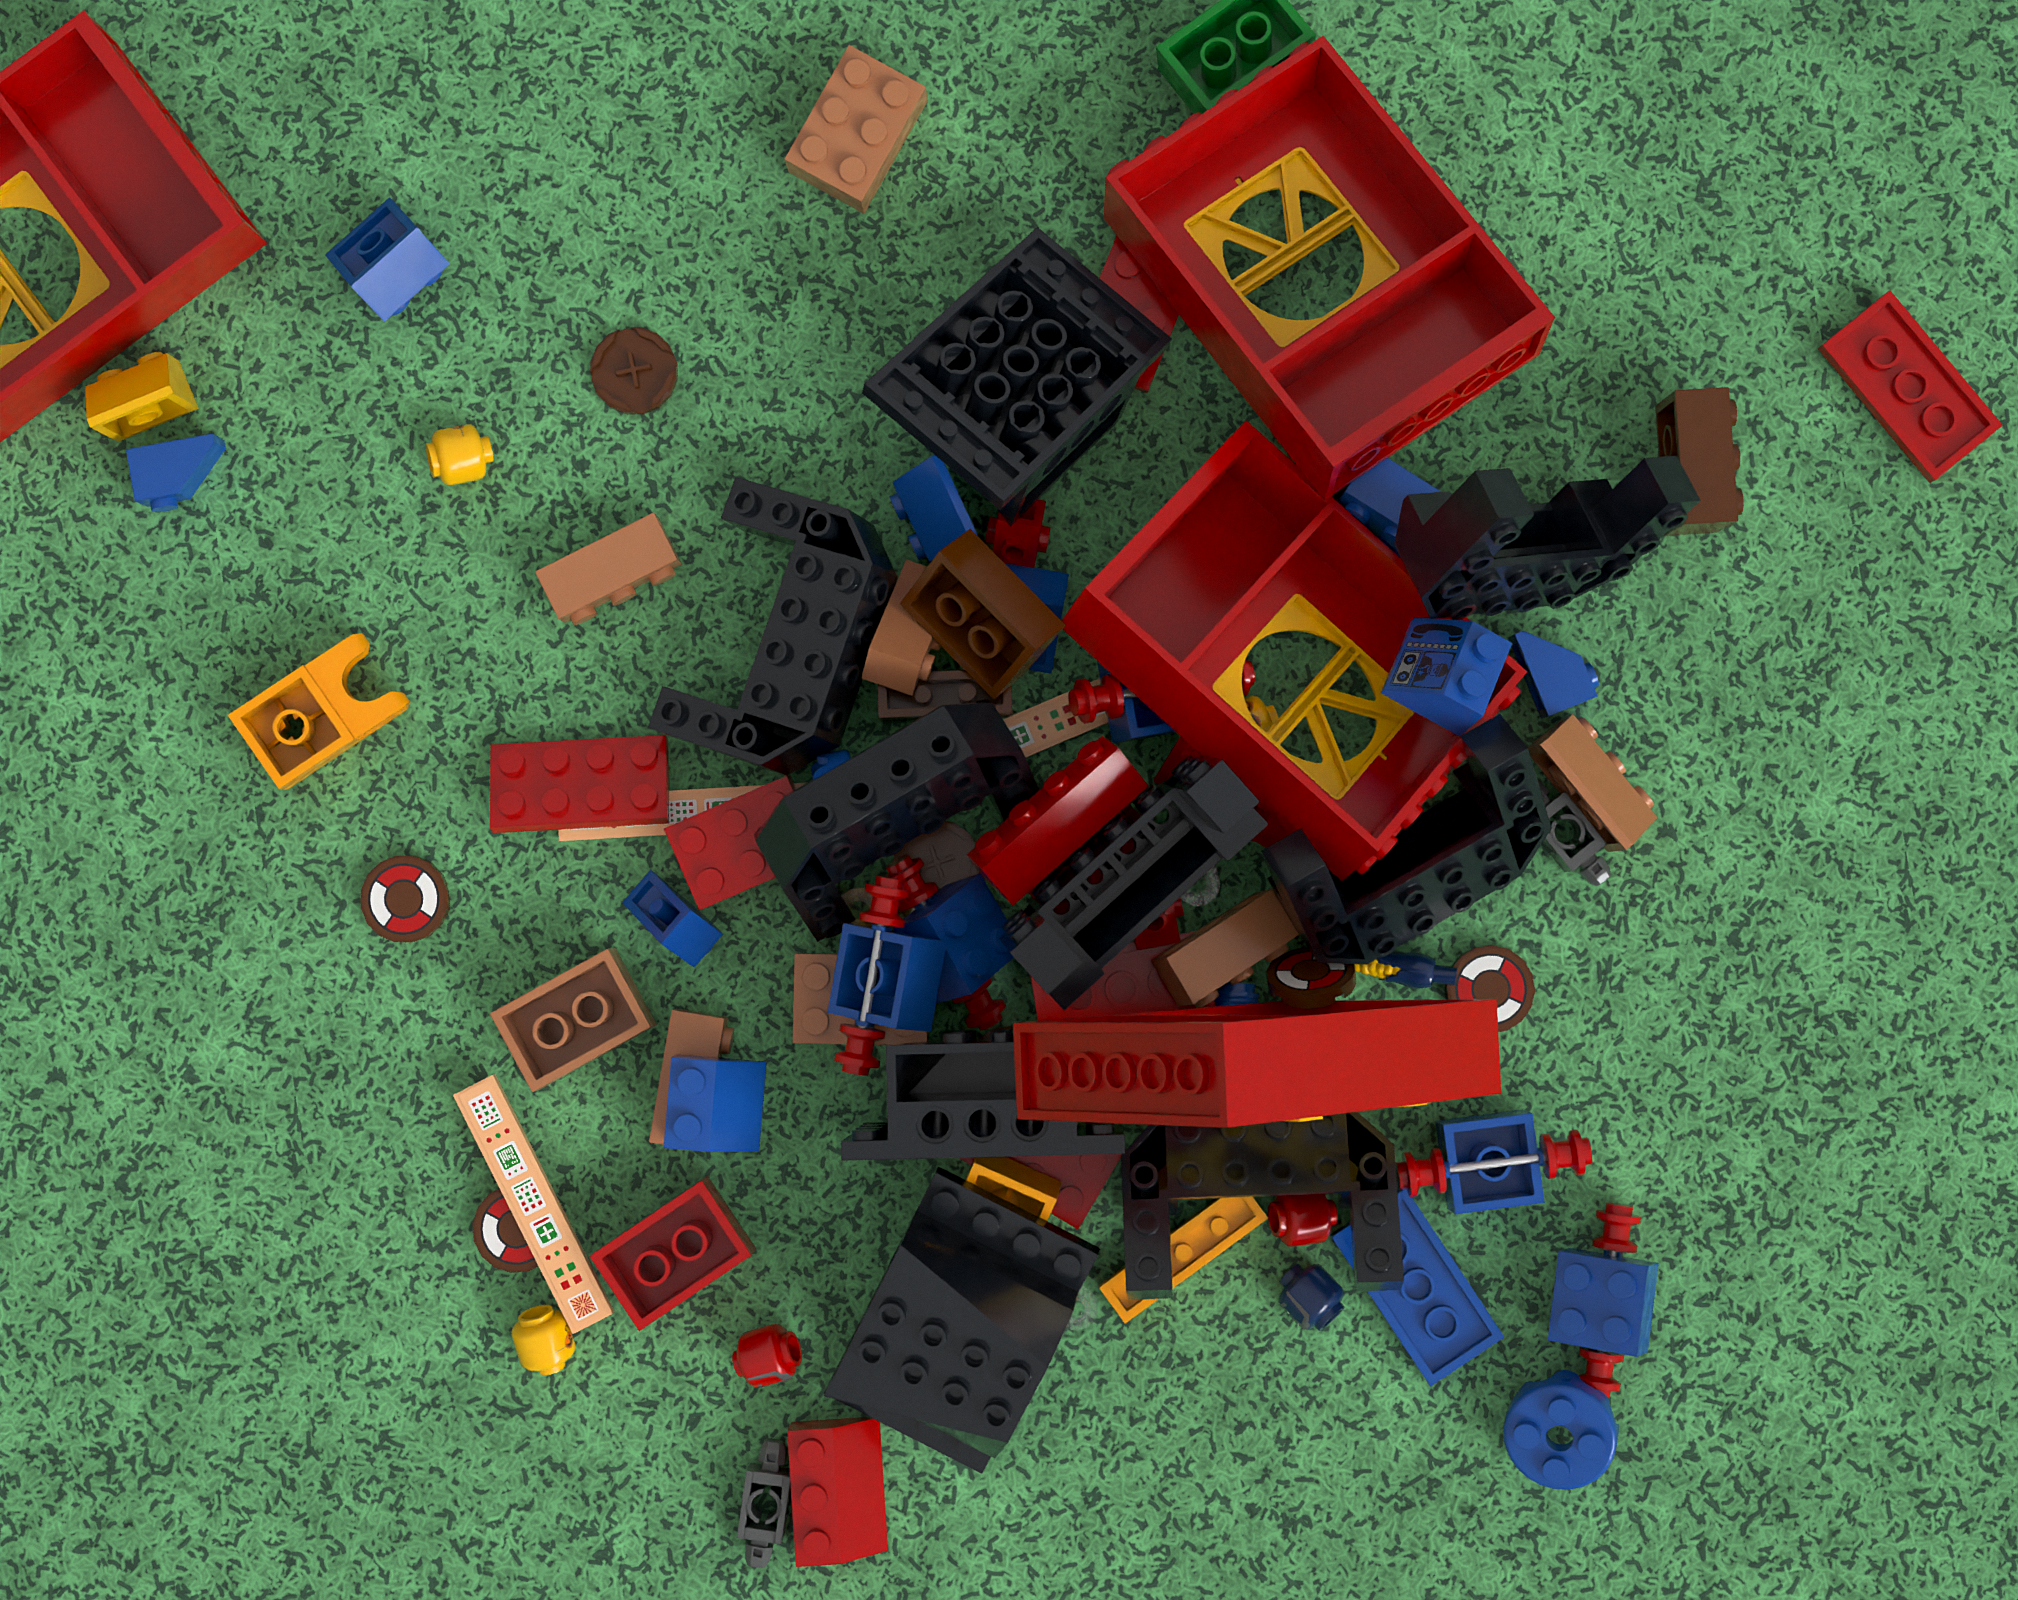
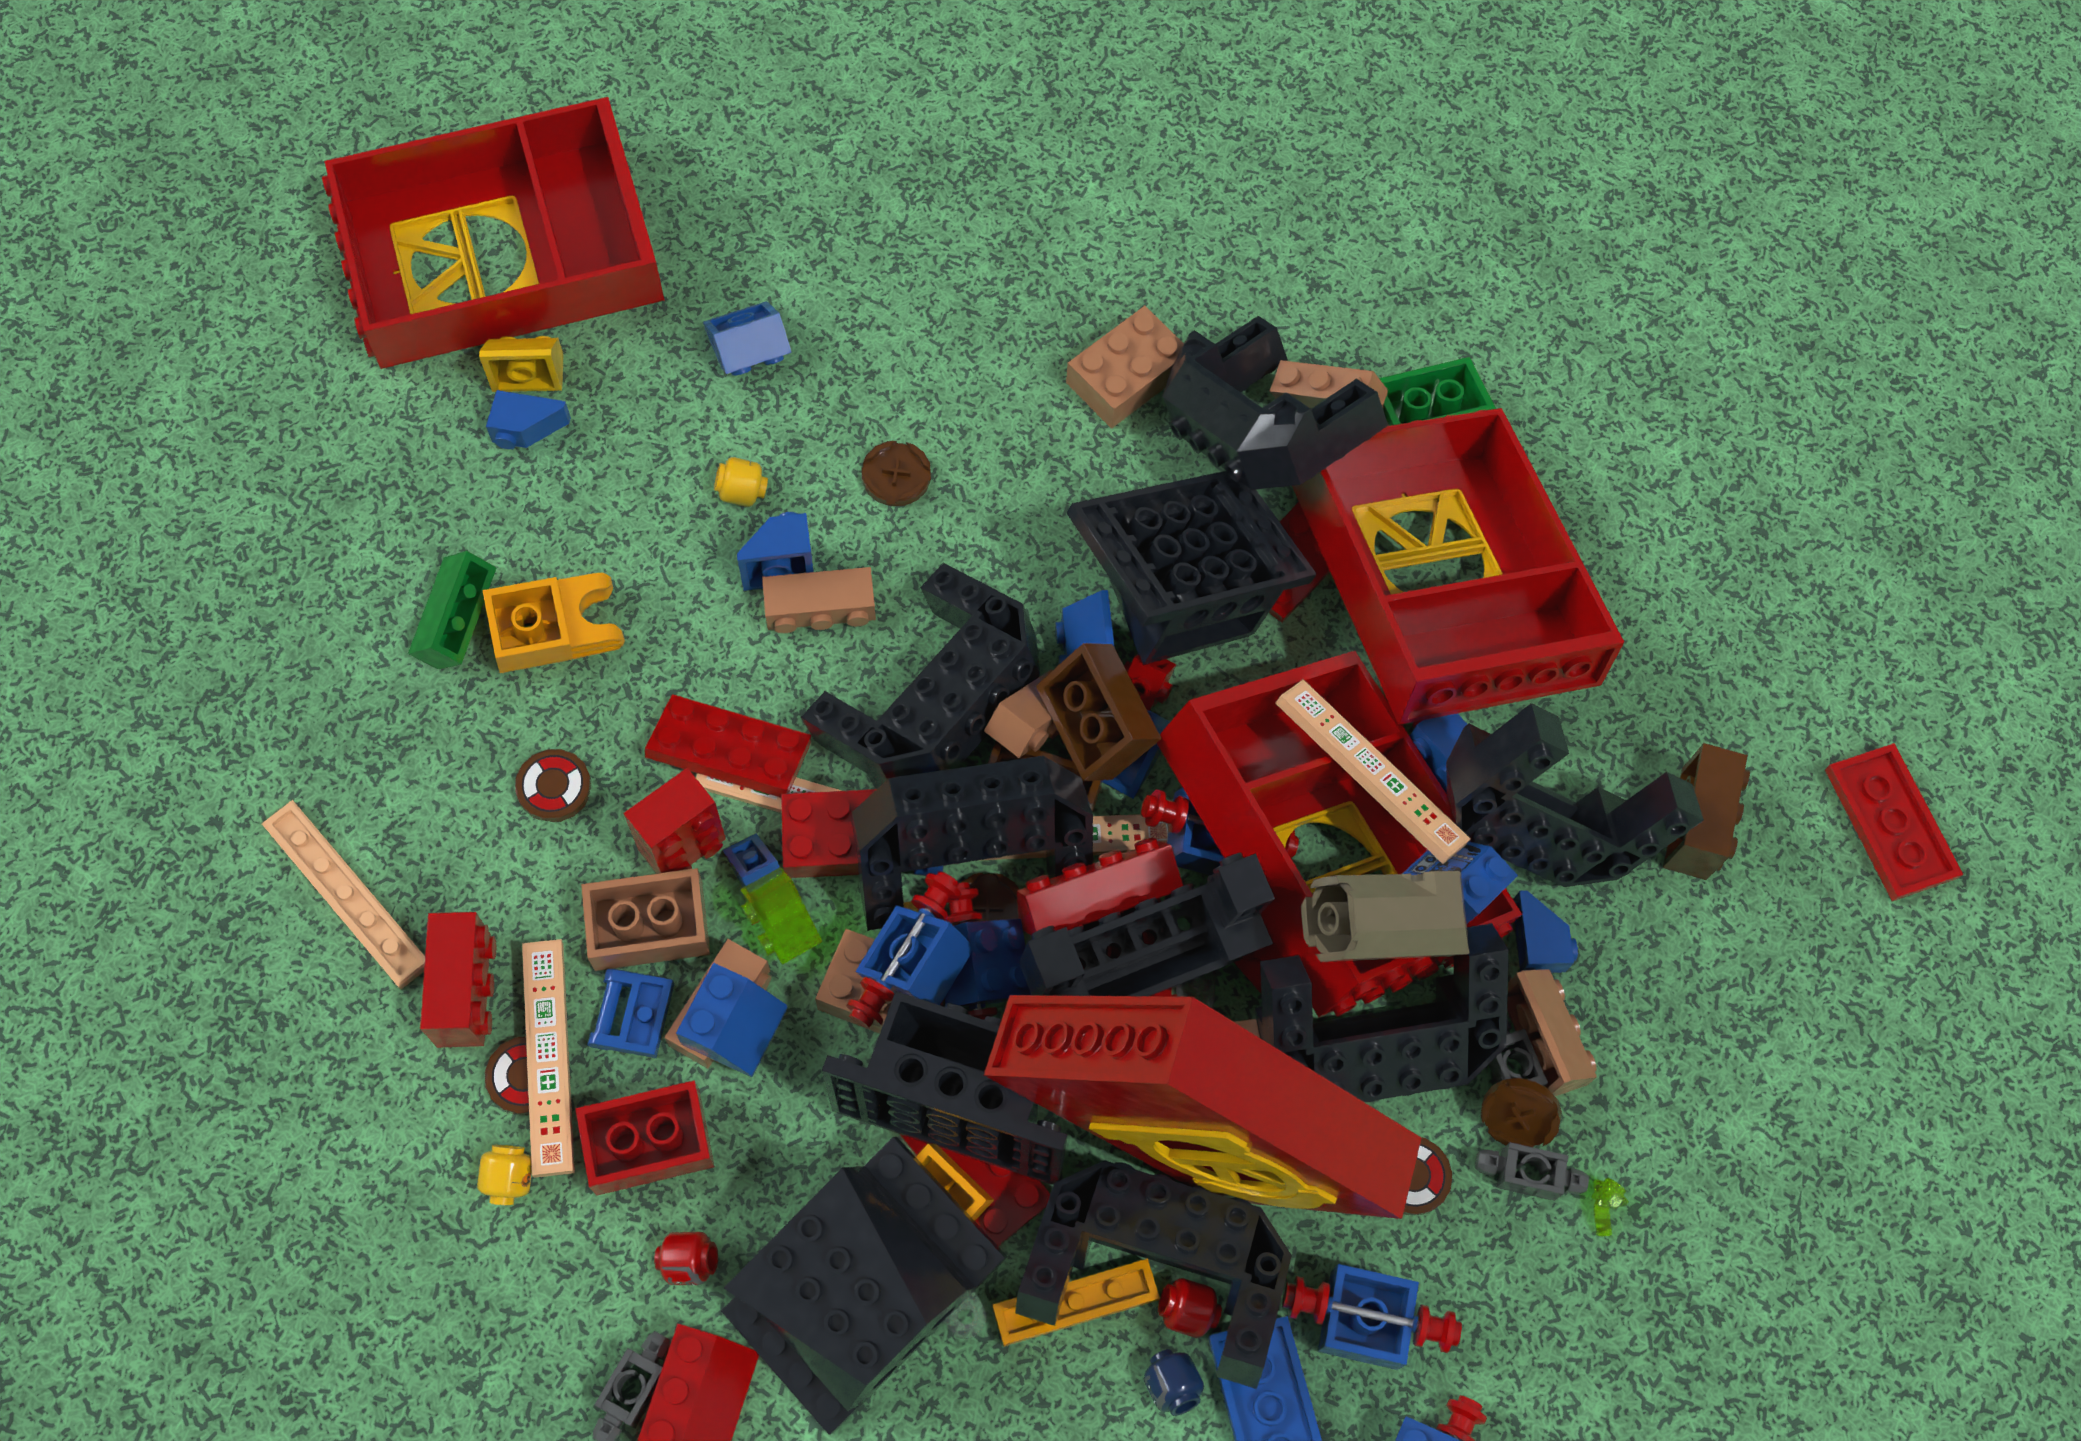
camera: 10 degrees right, 20 degrees down
(201, 741) = (452, 610): none -> green brick
(236, 1103) = (346, 894): none -> light nougat tile
(403, 1162) = (457, 980): none -> red brick
(542, 533) = (776, 549): none -> blue slope
(565, 913) = (676, 824): none -> red brick
(614, 1118) = (643, 1015): none -> blue plate
(717, 964) = (780, 915): none -> clear neon green brick
(1049, 203) = (1257, 444): none -> black wedge
(1108, 81) = (1317, 382): none -> nougat brick
(1314, 580) = (1373, 771): none -> light nougat tile
(1387, 770) = (1386, 916): none -> dark tan brick
(1587, 886) = (1521, 1112): none -> reddish brown tile
(1645, 938) = (1558, 1178): none -> dark grey piece
(1704, 938) = (1607, 1196): none -> clear neon green plate

